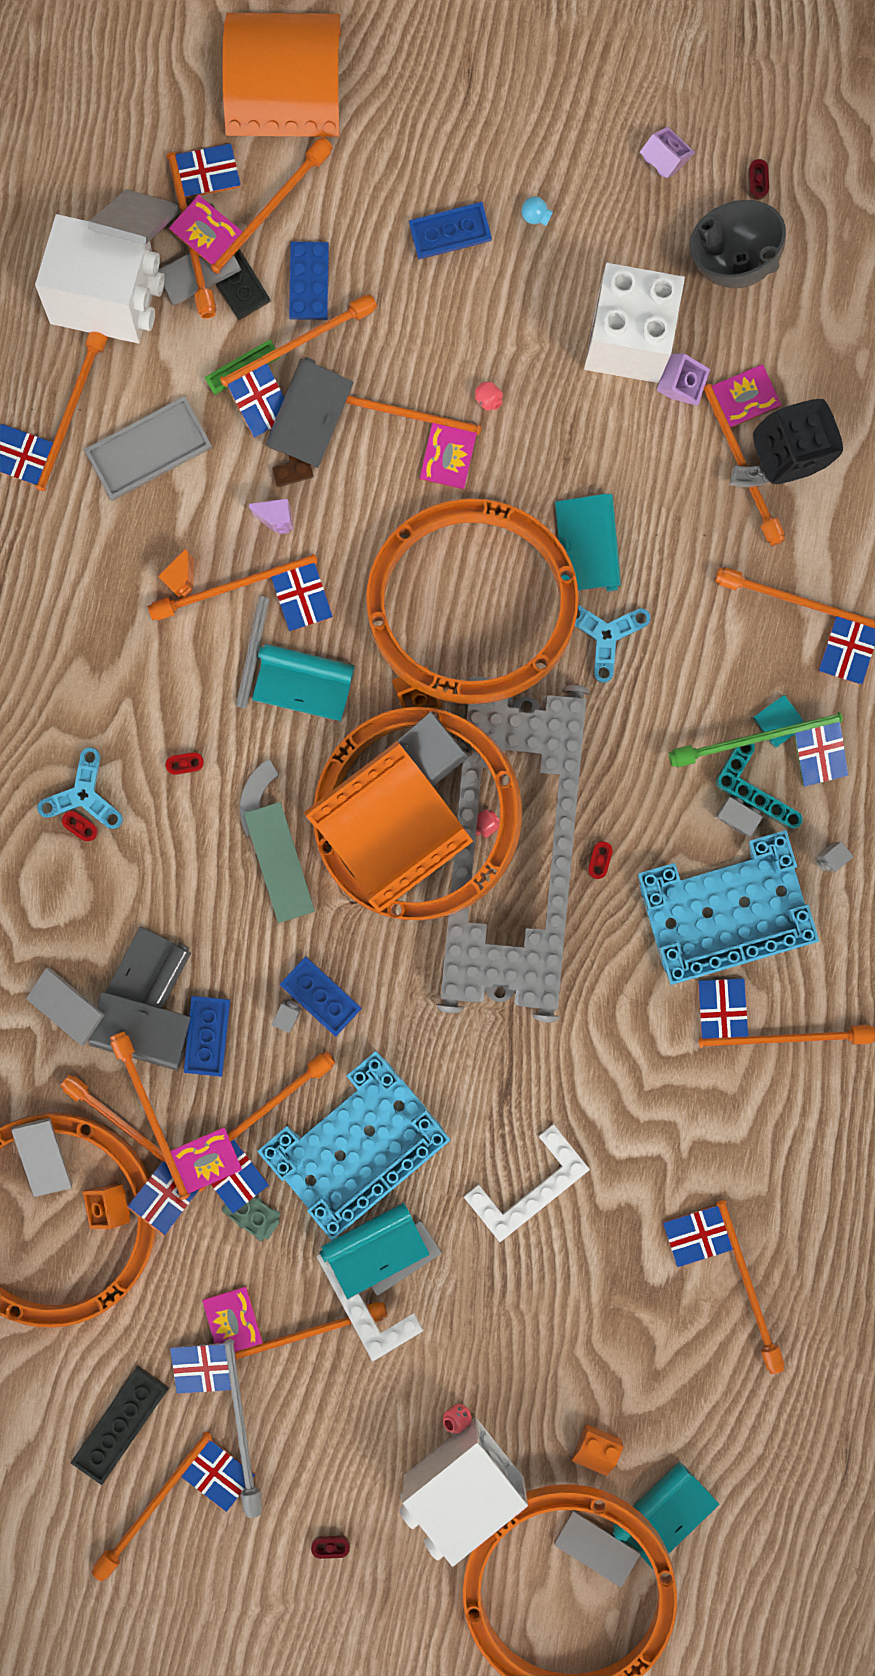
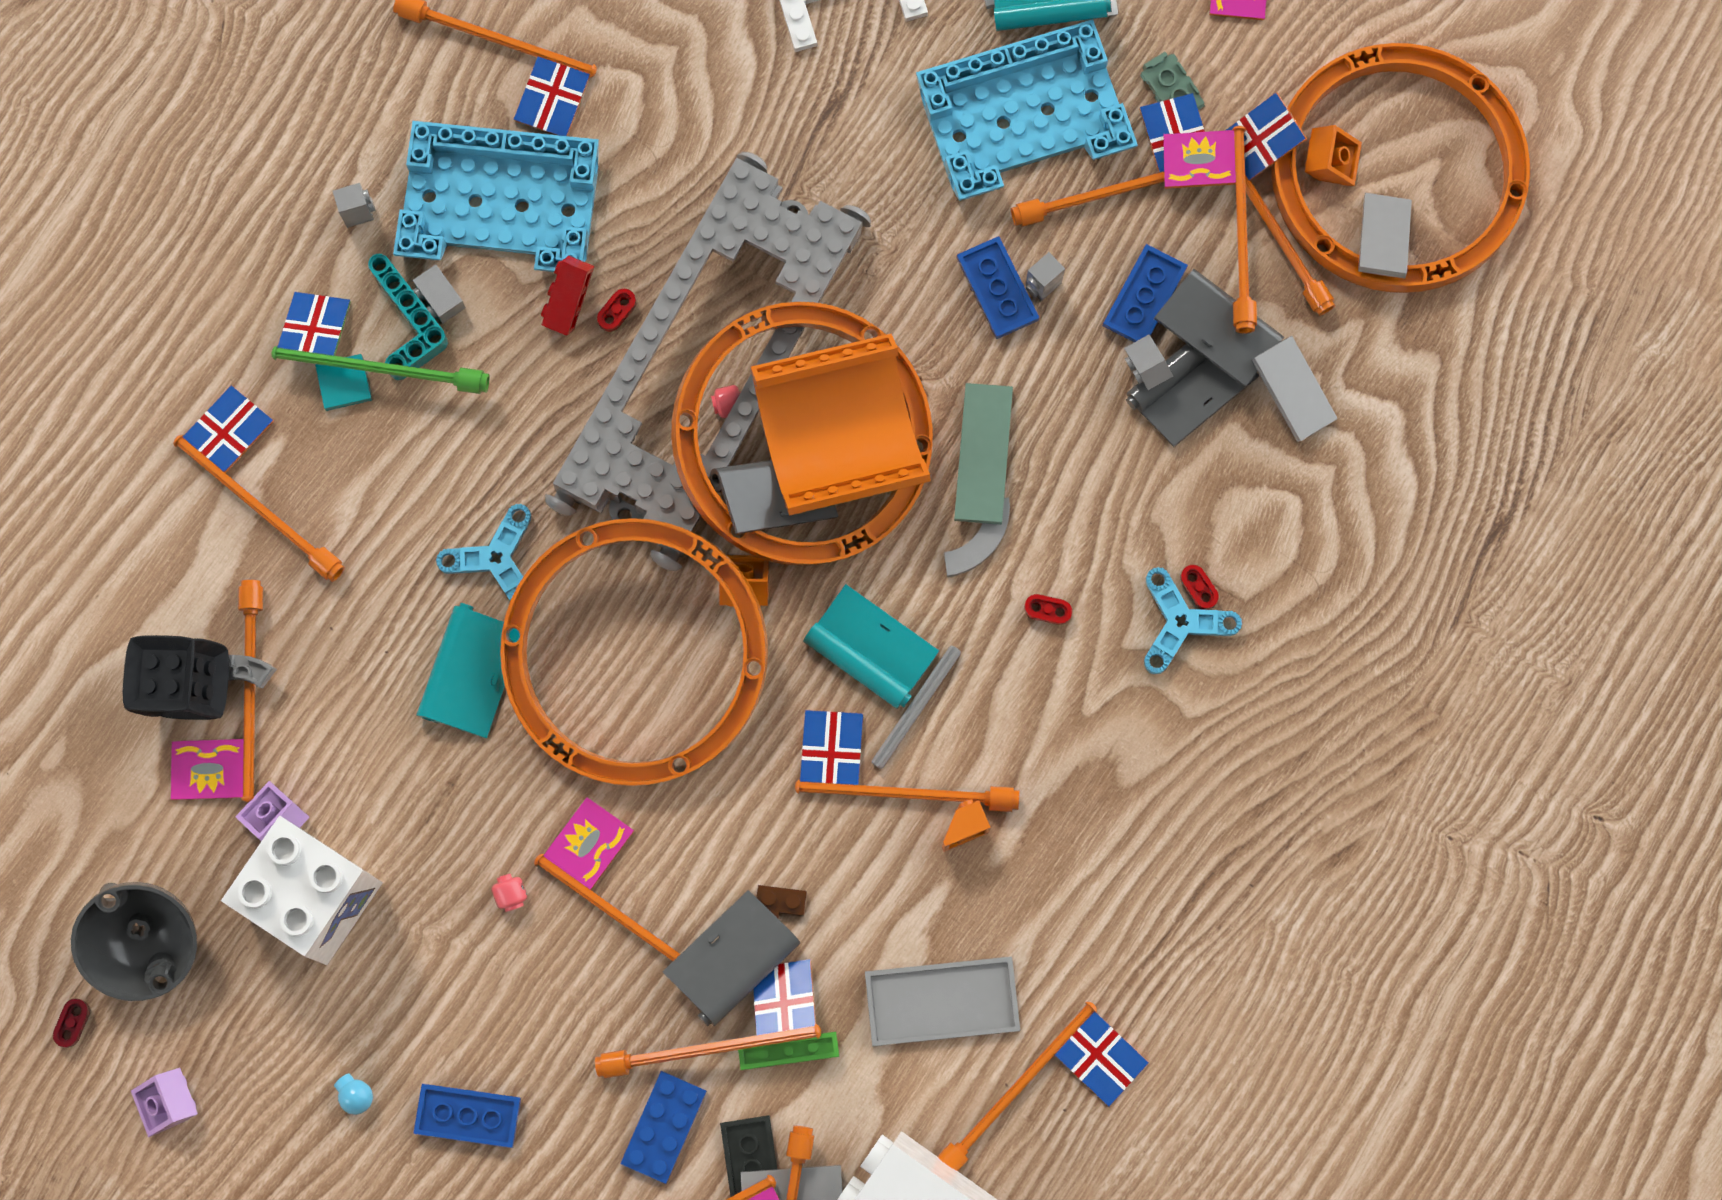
camera: 160 degrees left, 10 degrees down
(182, 981) = (1148, 362): none -> light grey brick
(274, 515) = (823, 851): lavender slope -> none
(641, 852) = (567, 295): none -> red brick

